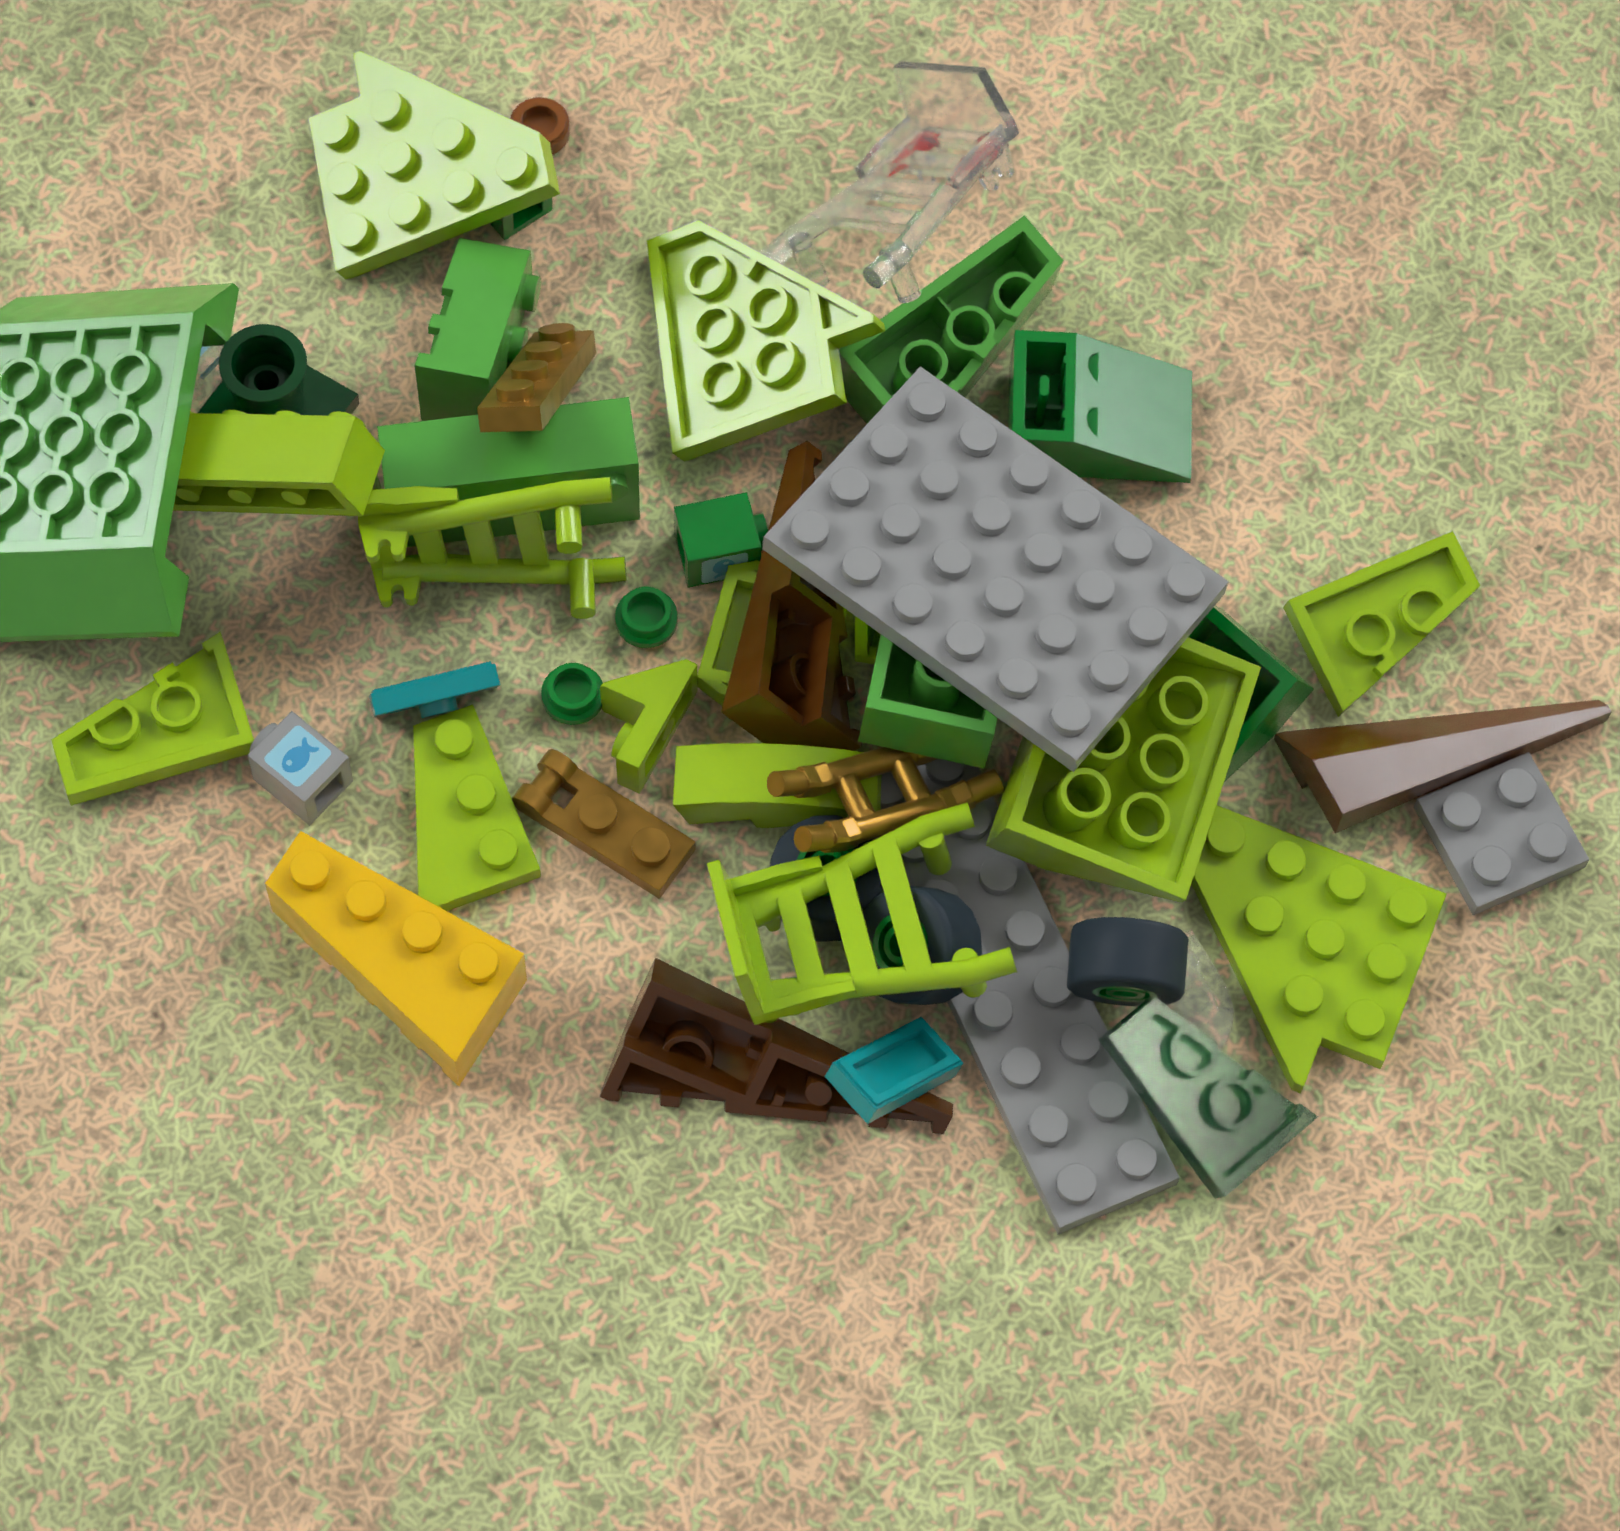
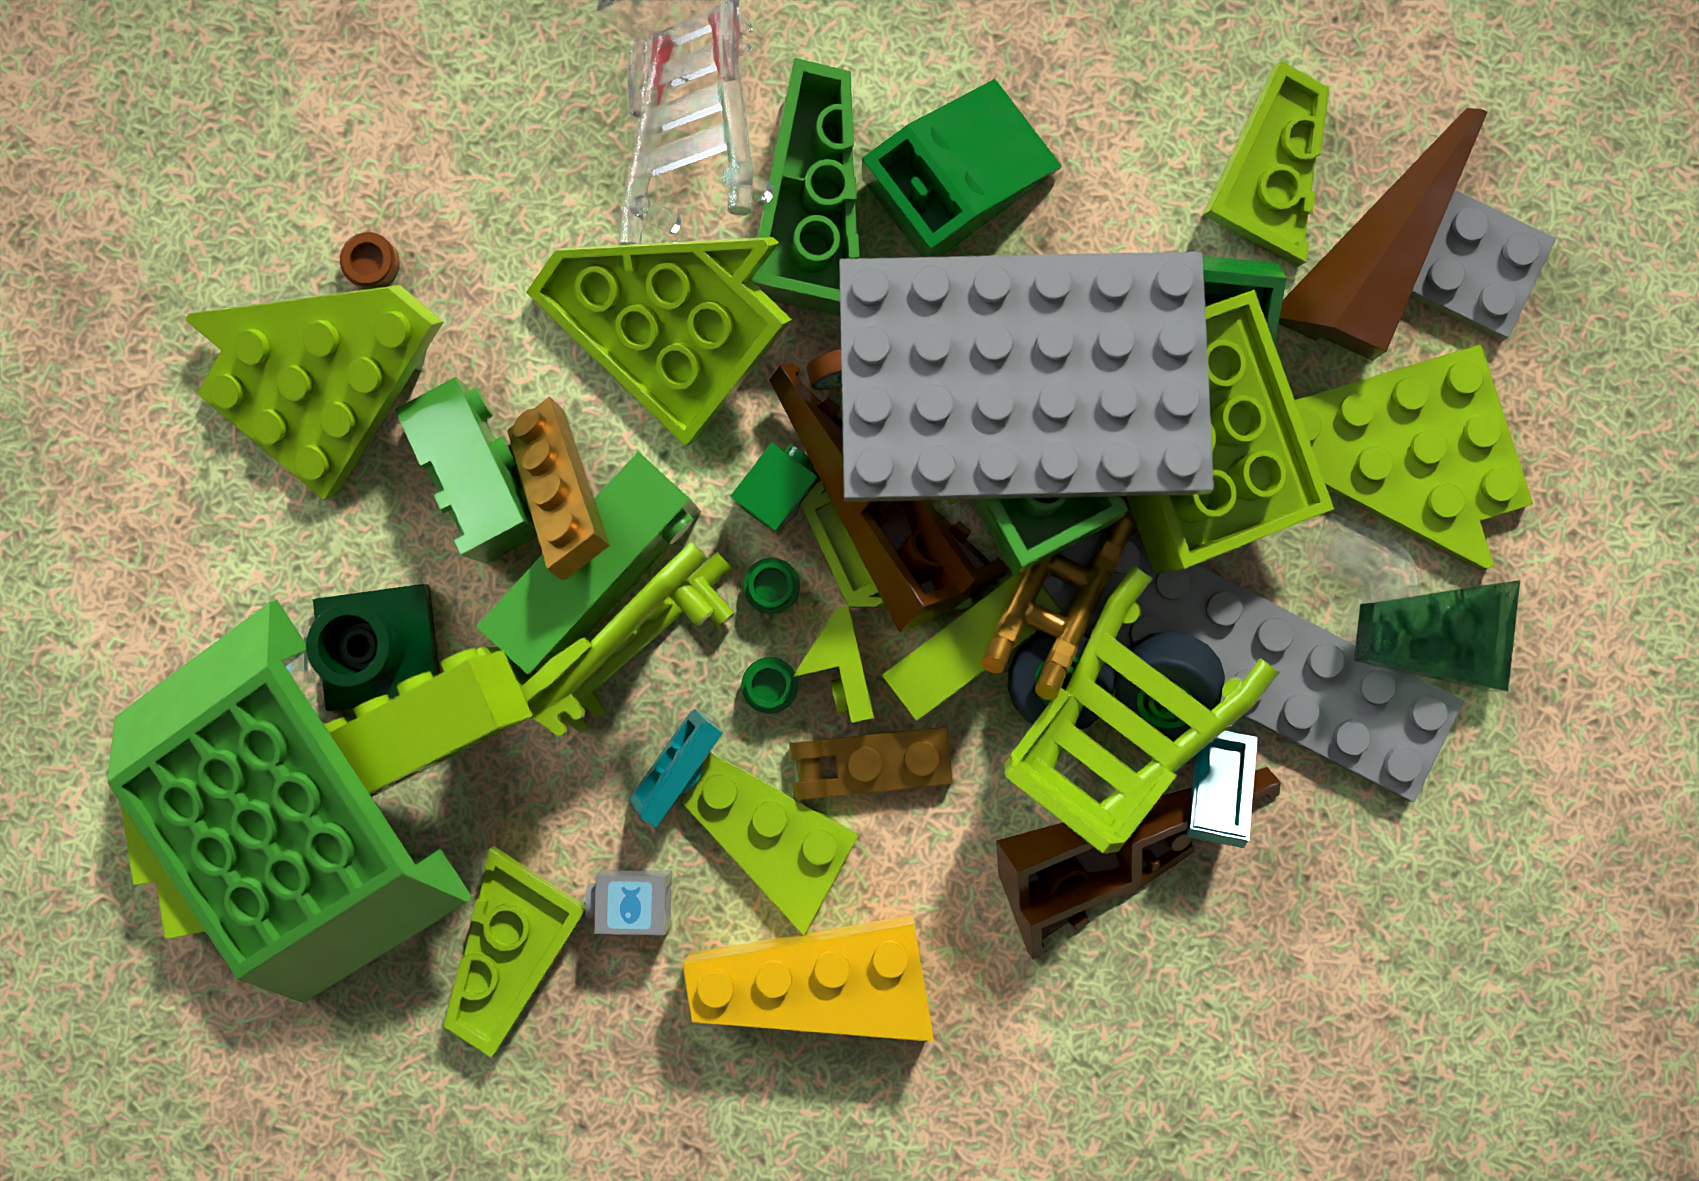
camera: 30 degrees left, 20 degrees up
(1127, 961) = (1329, 587): black wheel -> none

